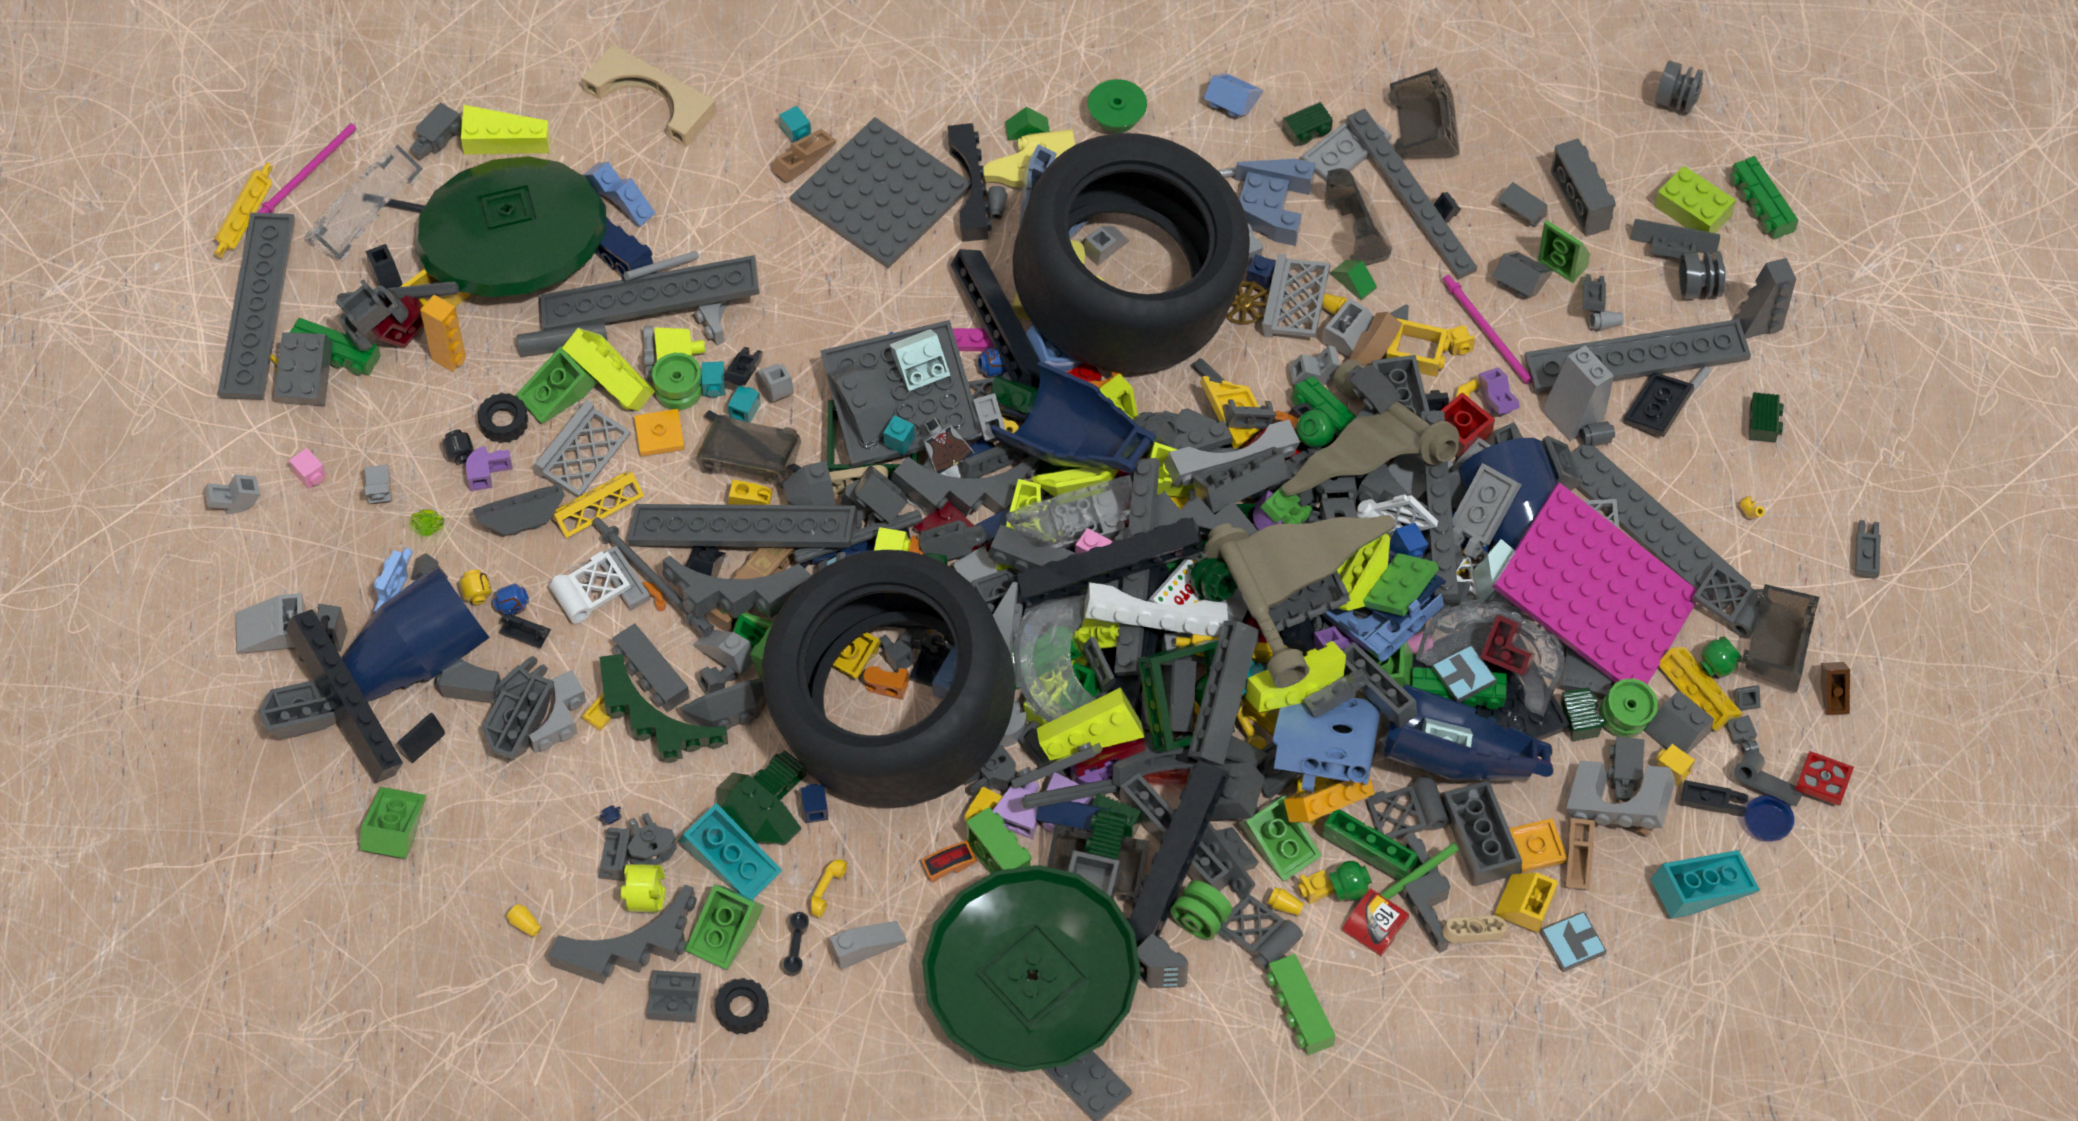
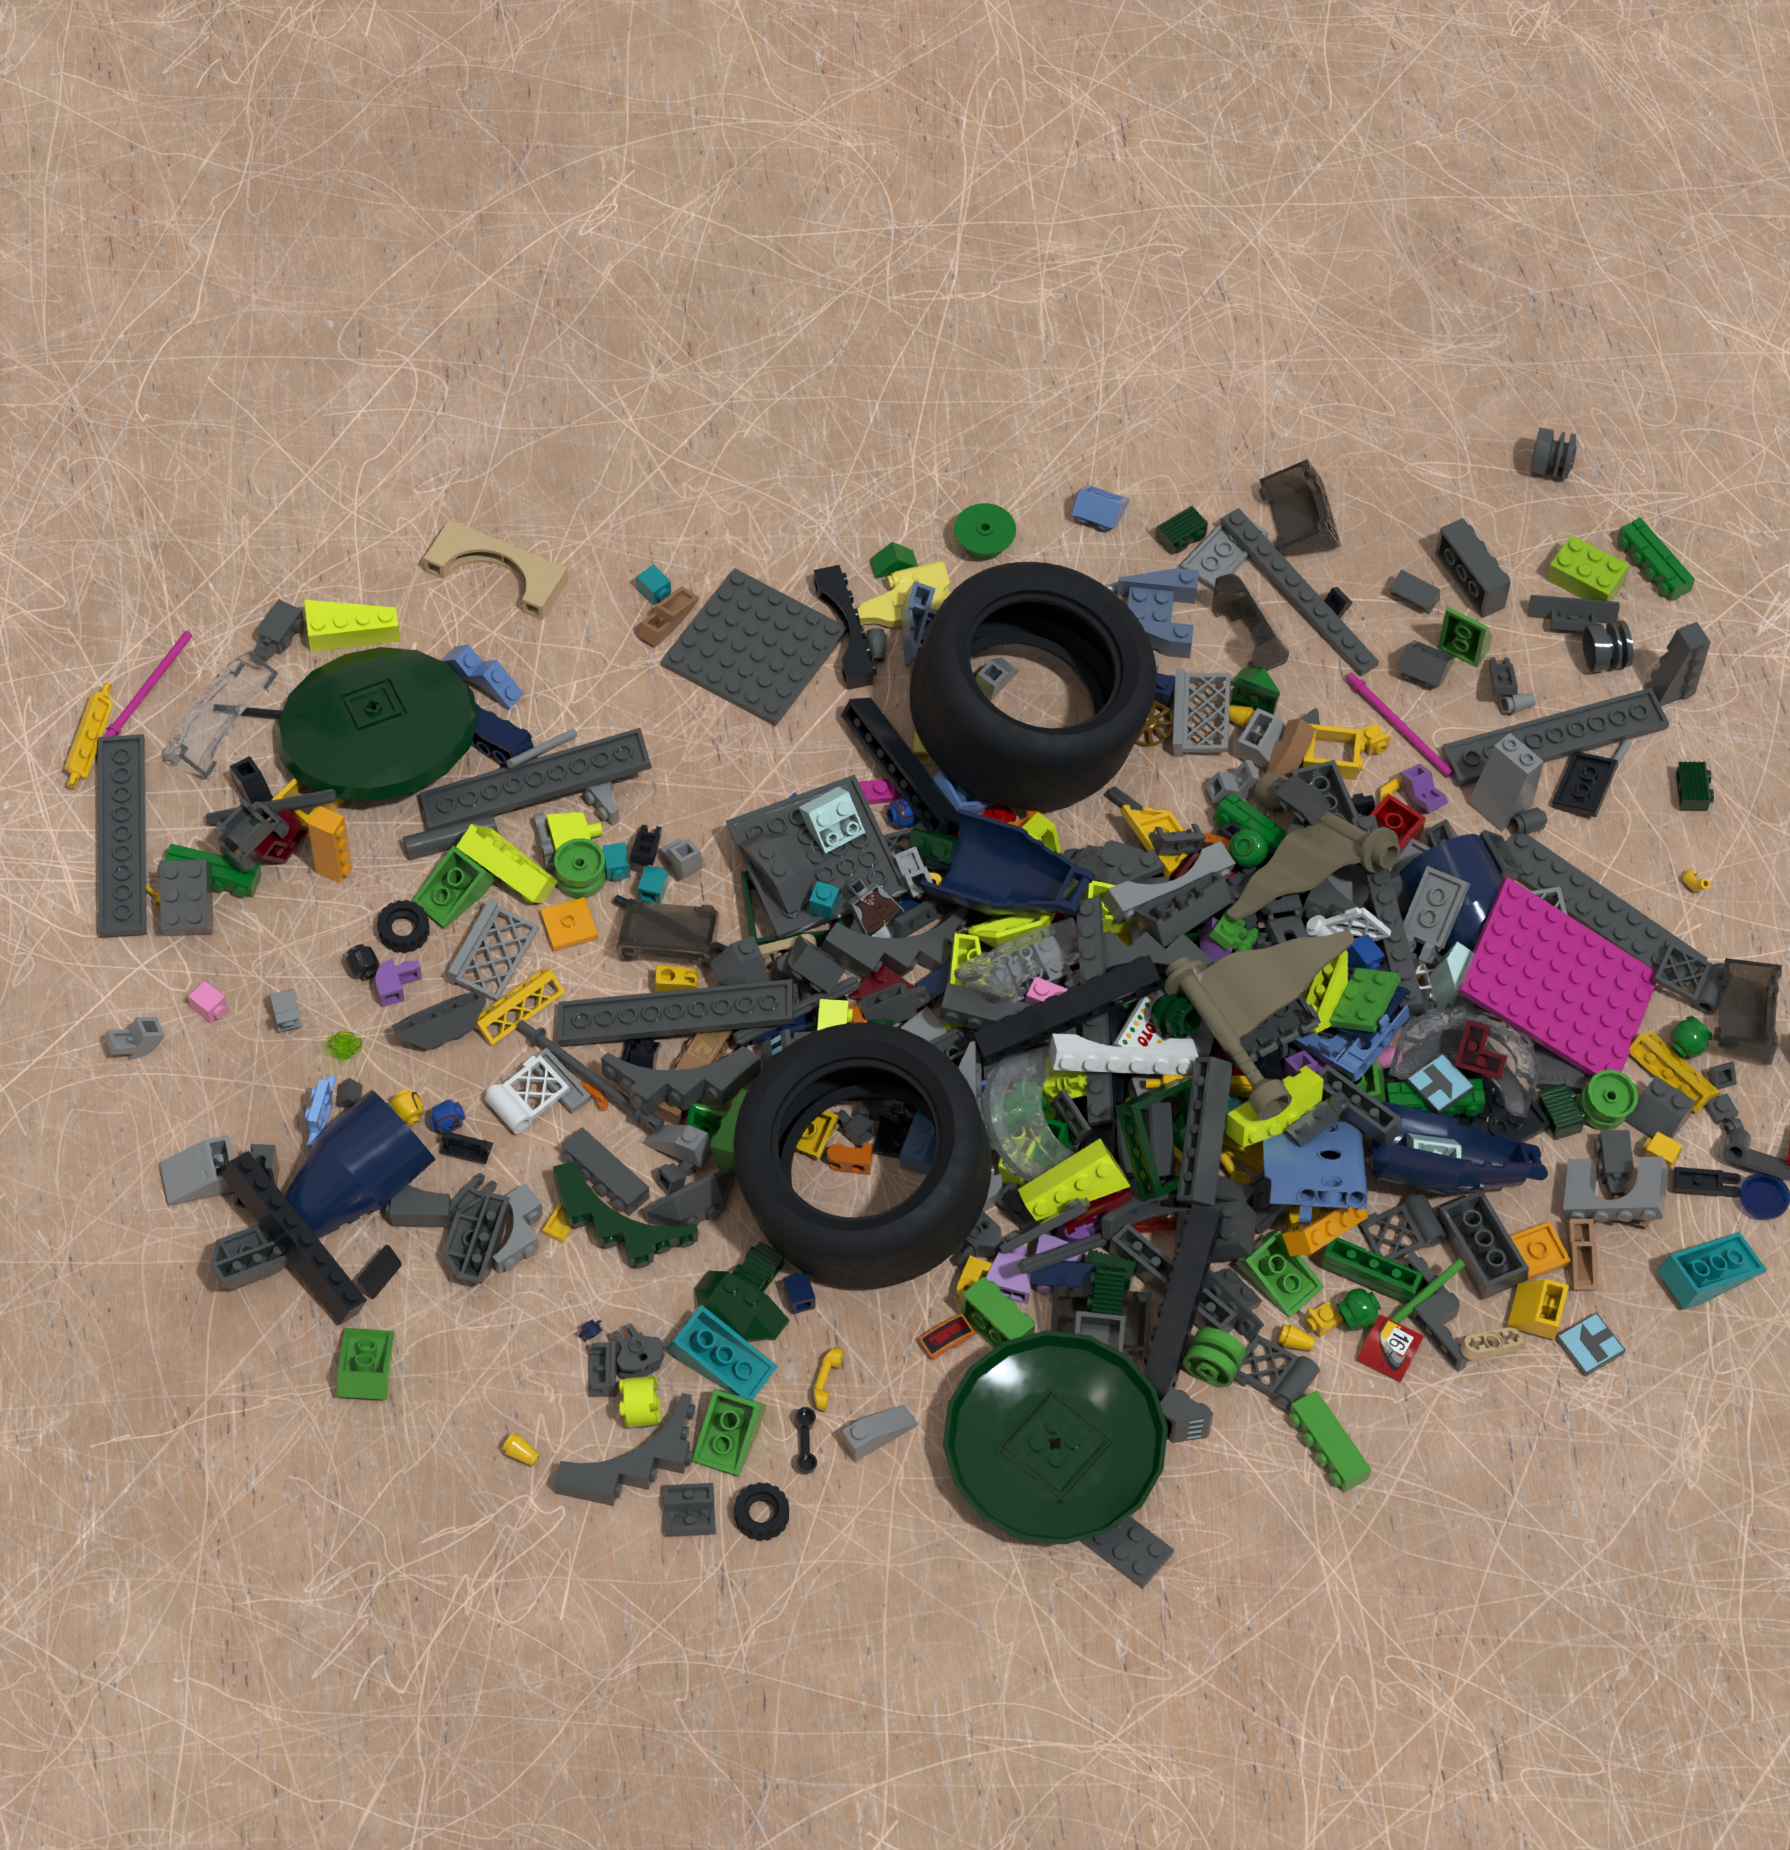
camera: 10 degrees left, 0 degrees up
(1348, 286) = (1255, 696): none -> dark green plate

